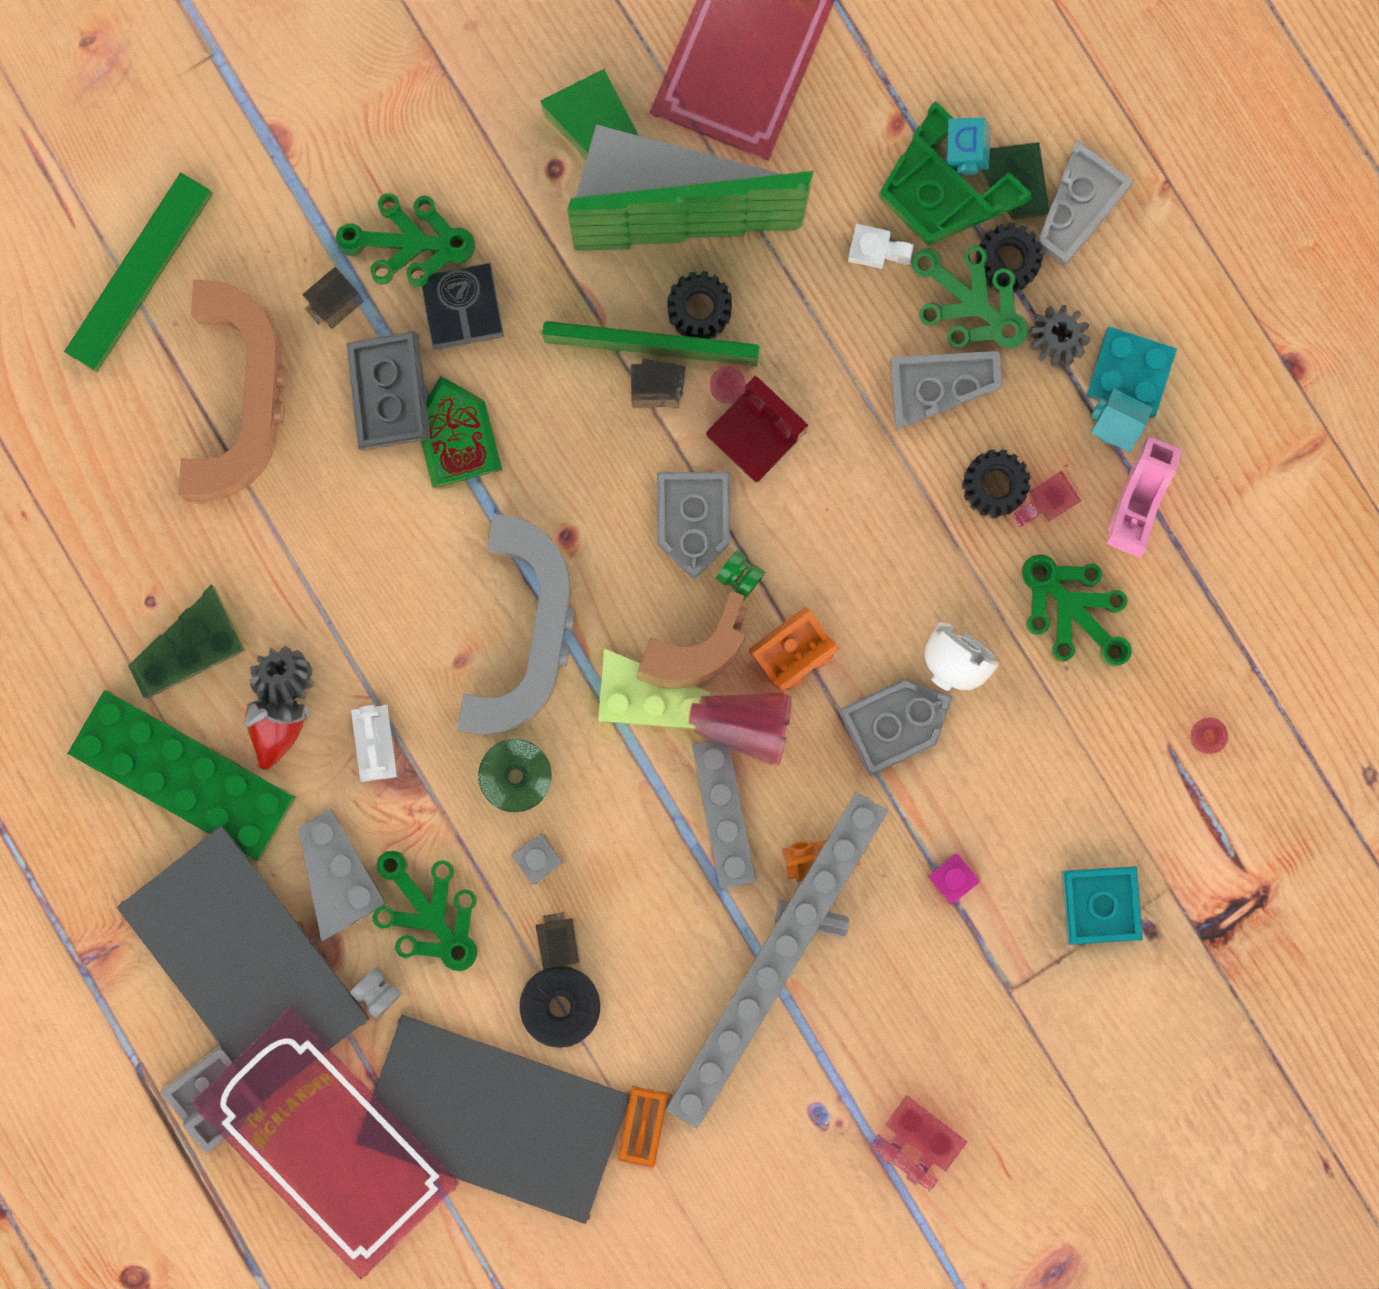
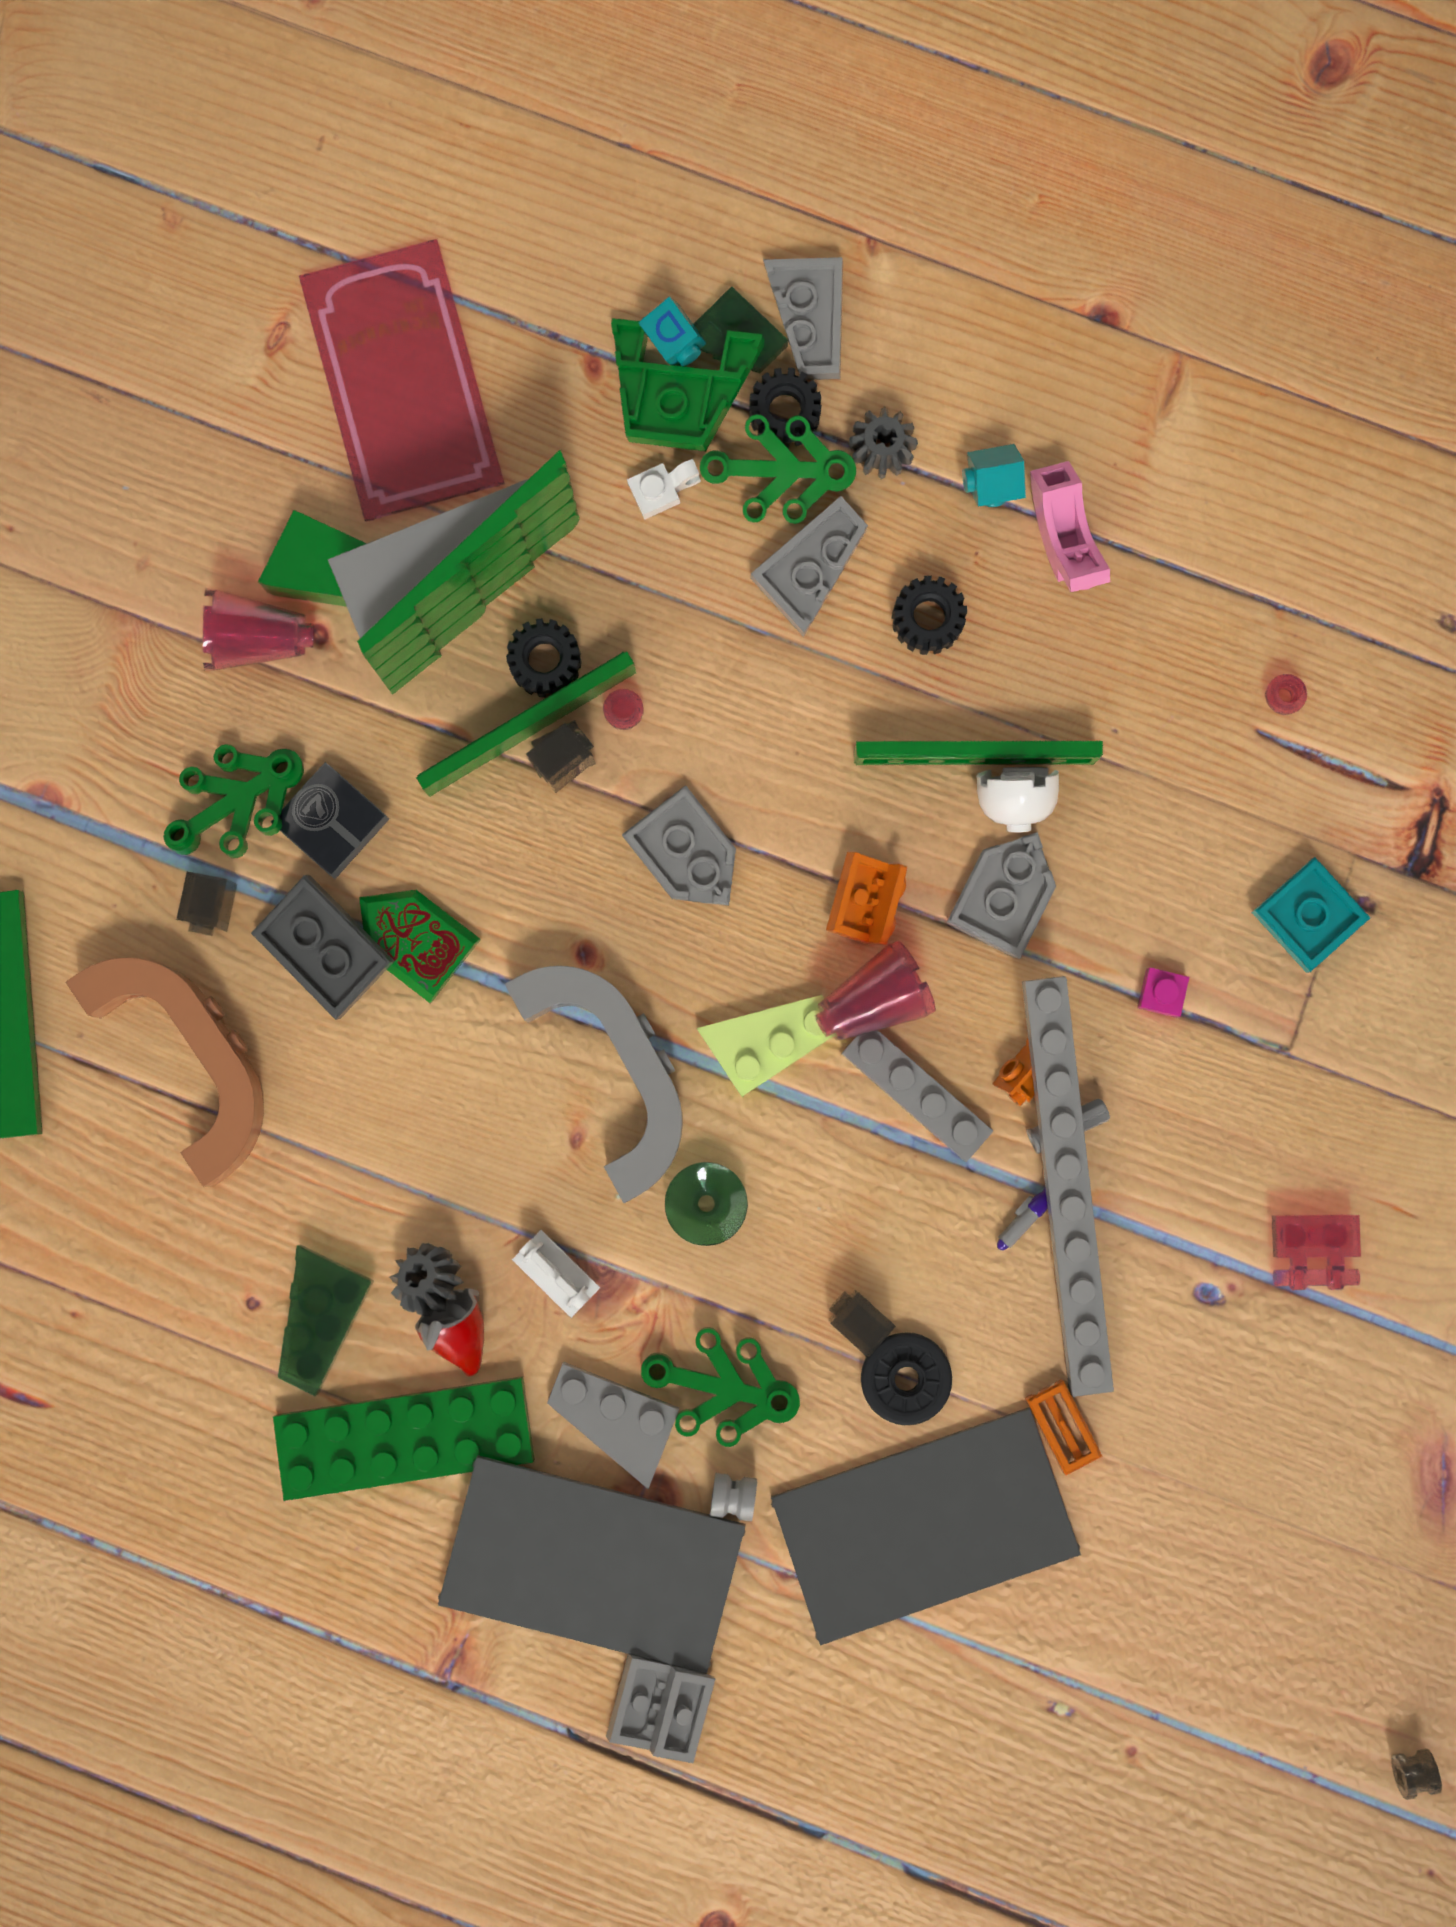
camera: 35 degrees left, 0 degrees up
(325, 1143) = (793, 1669): clear pink piece -> none
(508, 132) = (251, 632): none -> clear pink cone
(537, 859) = (783, 1263): light grey plate -> none
(693, 665) = (787, 984): nougat arch -> none
(733, 959) = (1026, 1214): none -> light grey piece
(734, 569) = (758, 869): green wheel -> none
(757, 430) = (681, 728): dark red bracket -> none
(953, 607) = (977, 752): none -> green tile
(1050, 498) = (987, 593): clear pink plate -> none
(1071, 606) = (1079, 673): green plant -> none
(1132, 367) = (966, 422): teal plate -> none

